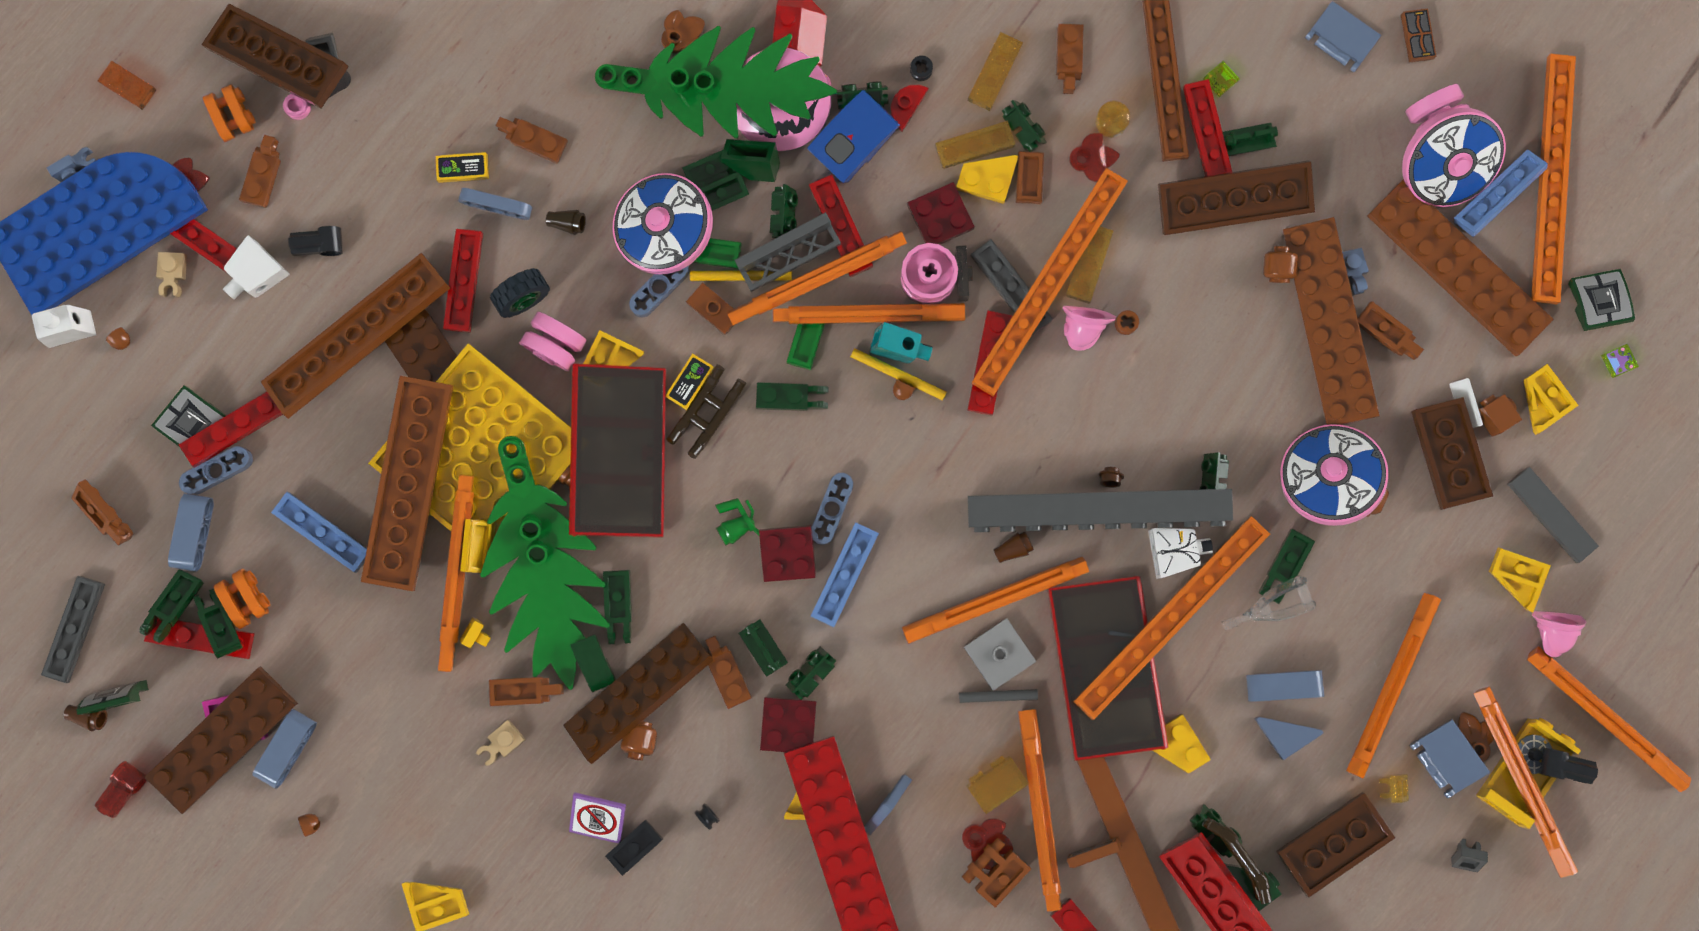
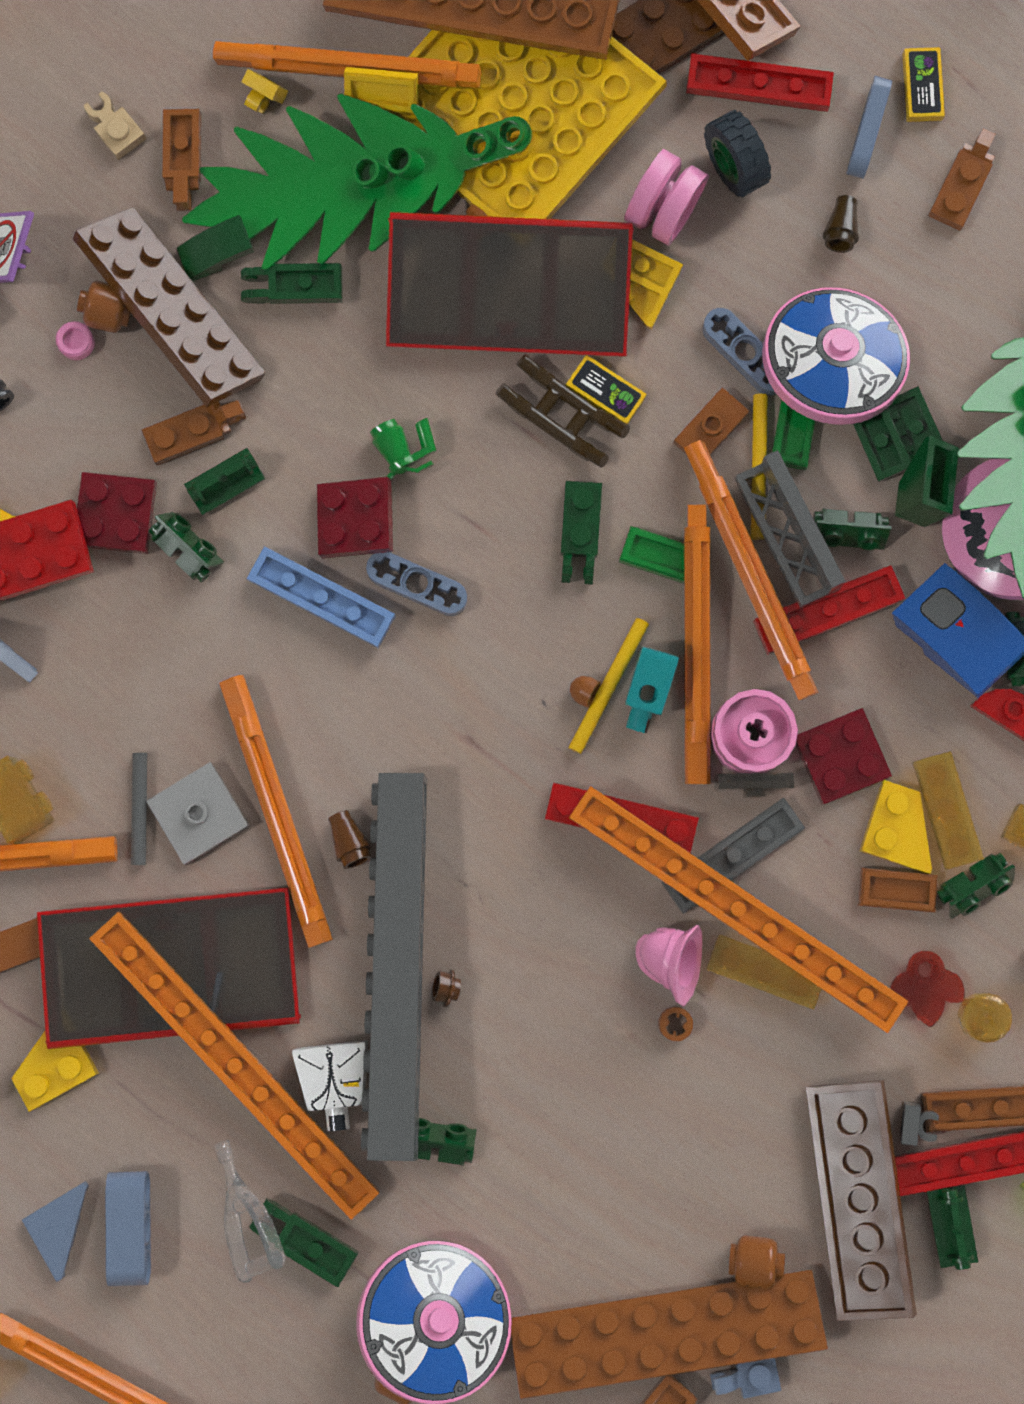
camera: 90 degrees right, 0 degrees up
(662, 762) = (75, 340): none -> bright pink tile
(1183, 165) = (912, 1124): none -> dark grey tile

